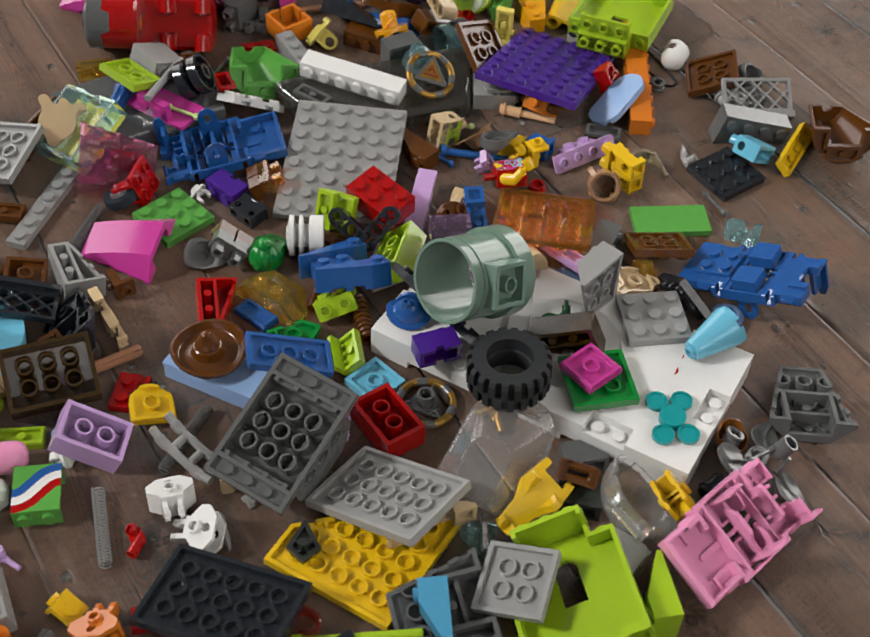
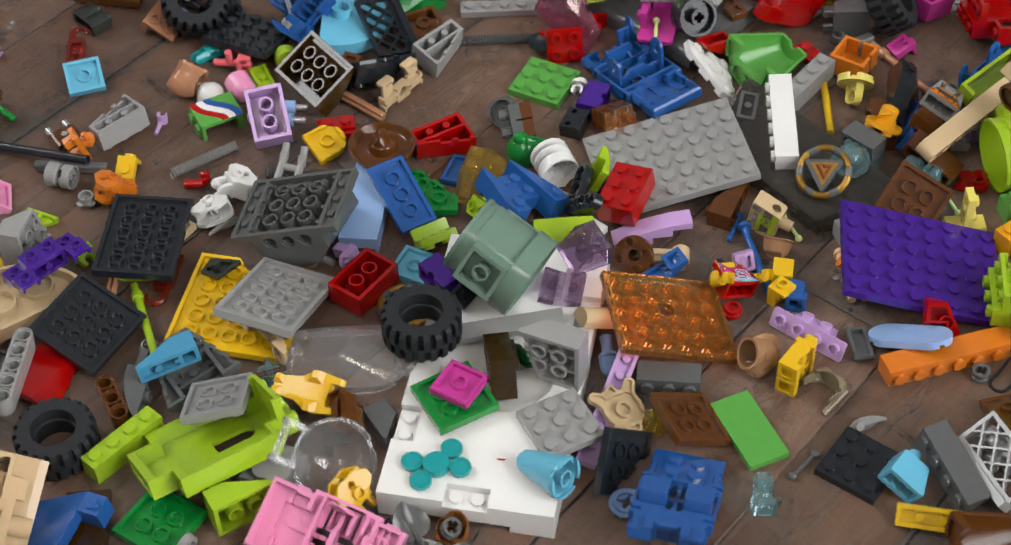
camera: 75 degrees right, 0 degrees up
(120, 288) = (443, 77): reddish brown bracket -> none
(127, 245) = (491, 62): dark pink wedge -> none
(496, 140) = (766, 252): dark grey piece -> none

